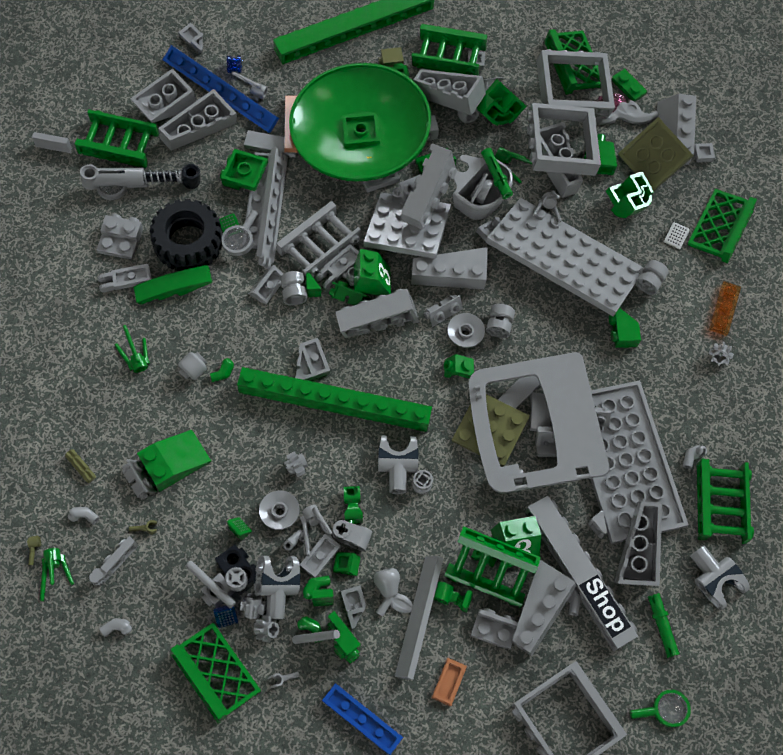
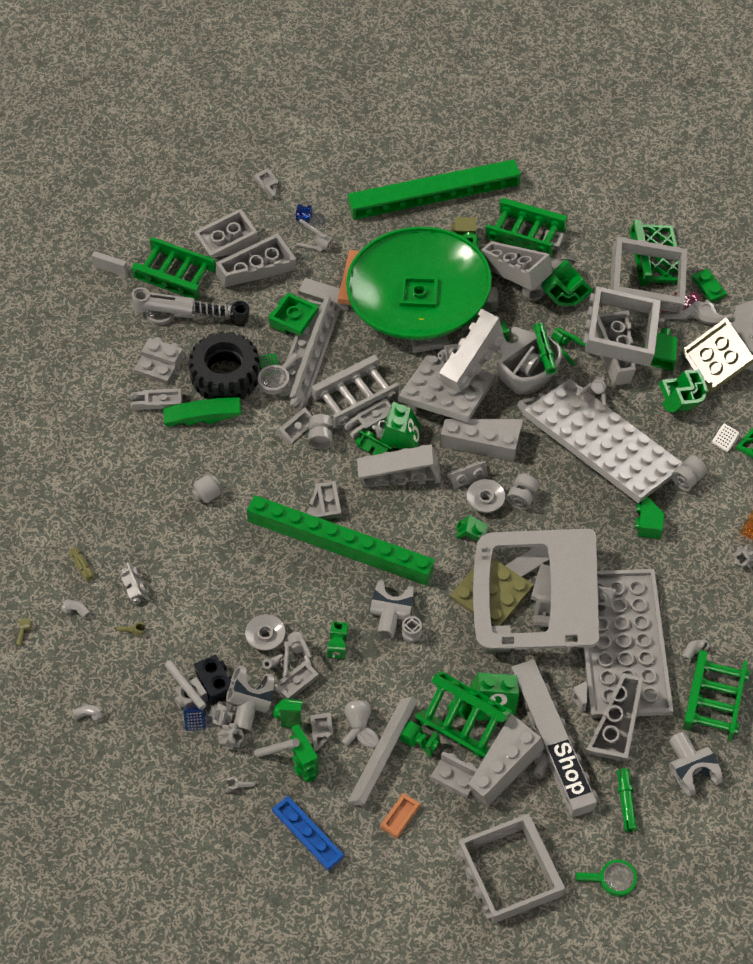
camera: 15 degrees right, 10 degrees down
(52, 560) = (39, 644): green plant -> none
(113, 562) = (96, 653): light grey hinge -> none
(138, 362) = (154, 478): green plant -> none
(173, 459) = (171, 571): green slope -> none
(198, 680) = (160, 778): green fence -> none
(210, 81) = (294, 241): blue plate -> none
(224, 372) = (237, 499): green arm -> none
(234, 575) = (211, 678): light grey wheel -> none
(239, 528) = (222, 643): green slope -> none
(295, 464) = (289, 593): light grey gear -> none
(309, 624) = (271, 739): green arm -> none
(312, 287) = (339, 433): green slope -> none
(346, 563) = (322, 693): green slope -> none
(354, 535) = (331, 666): light grey piece -> none

